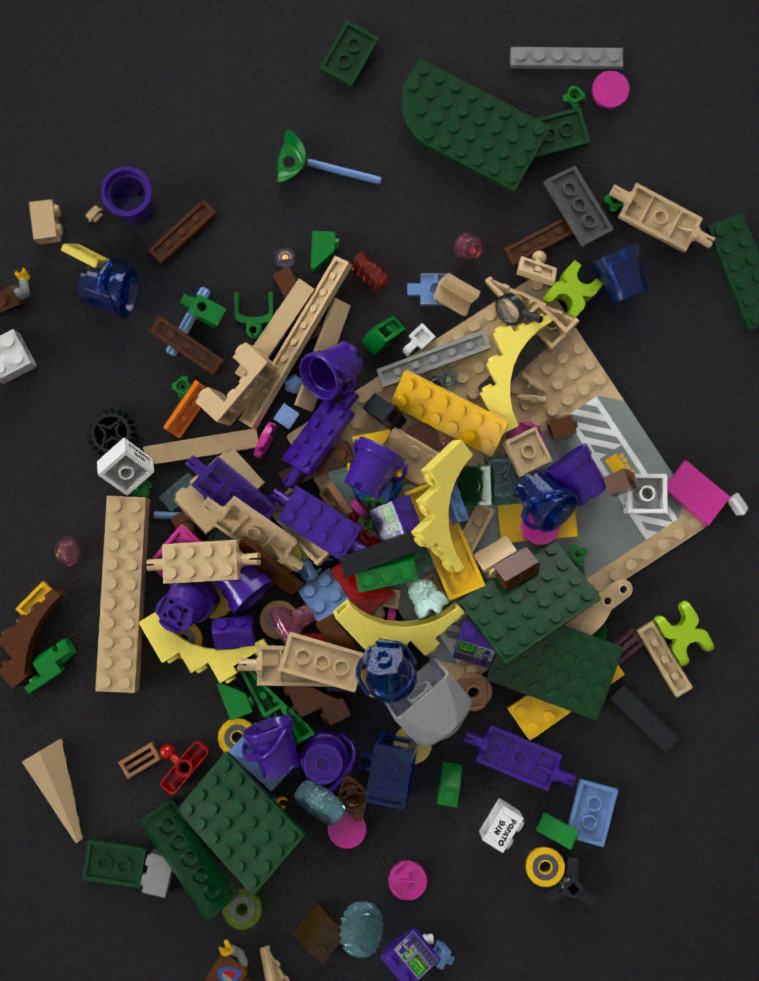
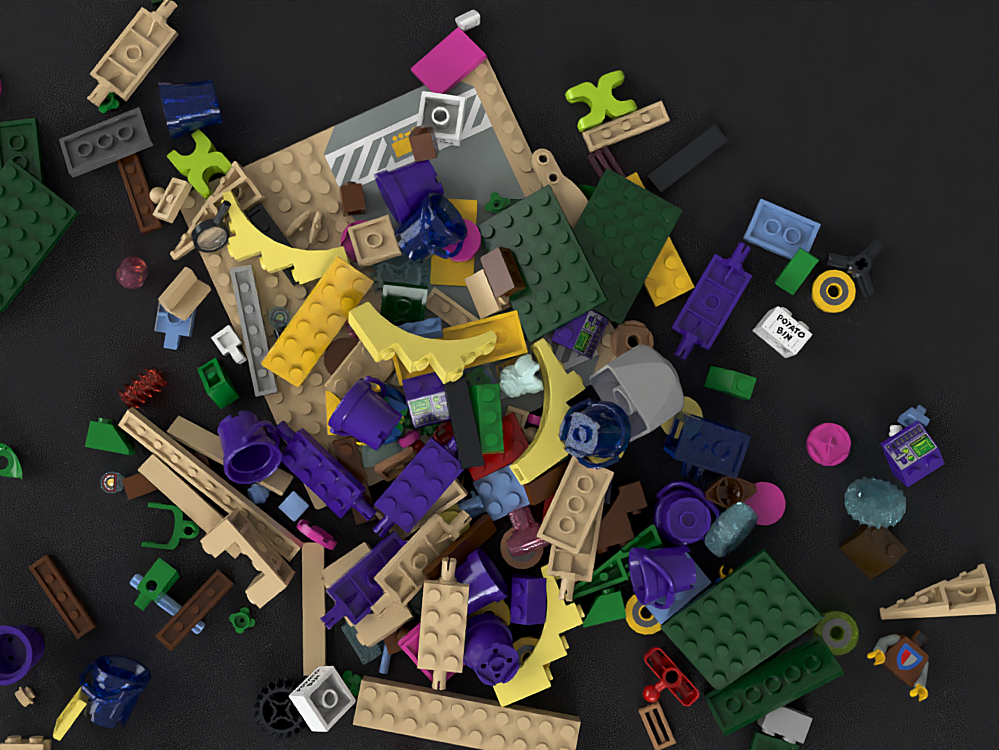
camera: 80 degrees left, 0 degrees up
(185, 411) = (270, 621): orange plate -> none
(344, 171) = (24, 397): medium blue bar -> none
(384, 412) = (305, 394): black tile -> none

